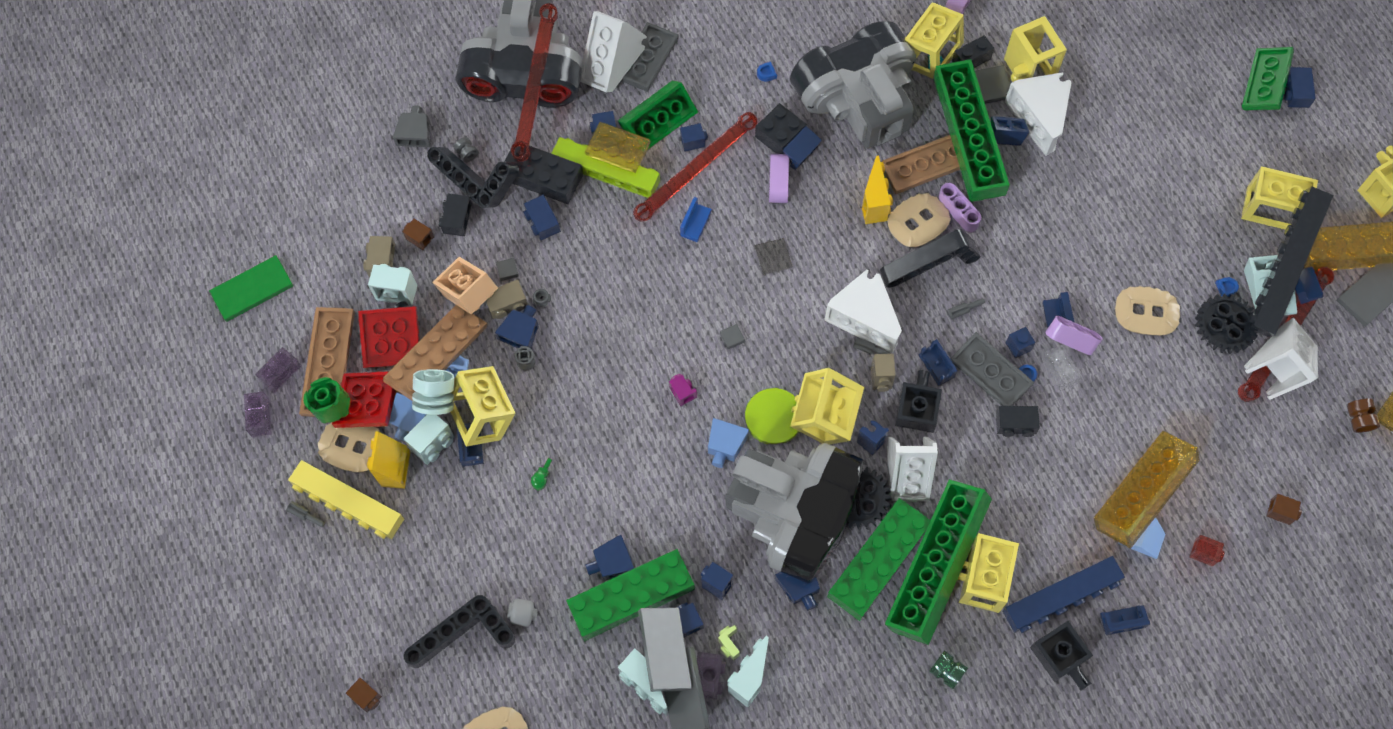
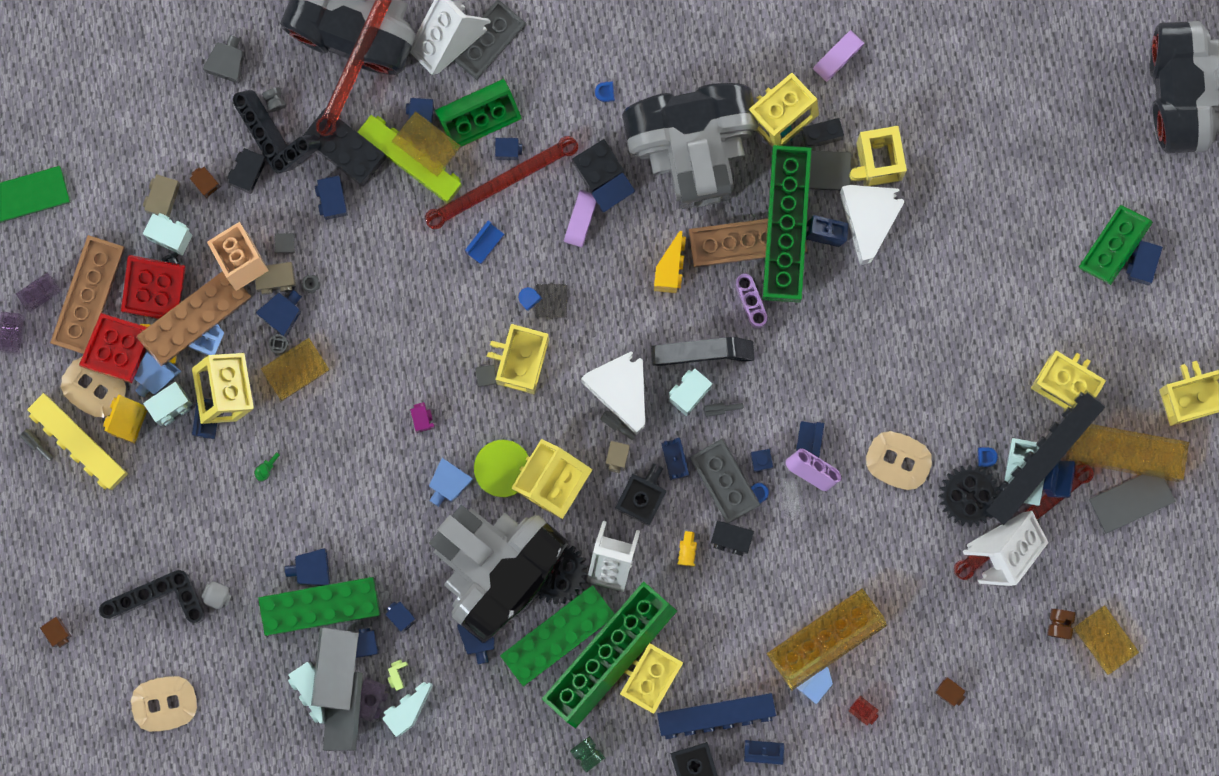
camera: 15 degrees right, 15 degrees up
(327, 400) = (79, 342): green brick -> none
(433, 392) = (181, 366): light aqua wheel -> none
(546, 377) = (295, 369): none -> clear yellow plate
(751, 257) = (529, 297): none -> blue tile
(762, 308) = (521, 358): none -> light yellow piece
(872, 440) = (588, 521): dark blue hinge -> none
(927, 229) = (702, 289): tan piece -> none
(931, 296) = (690, 391): none -> light aqua brick
(978, 444) = (687, 550): none -> yellow hinge

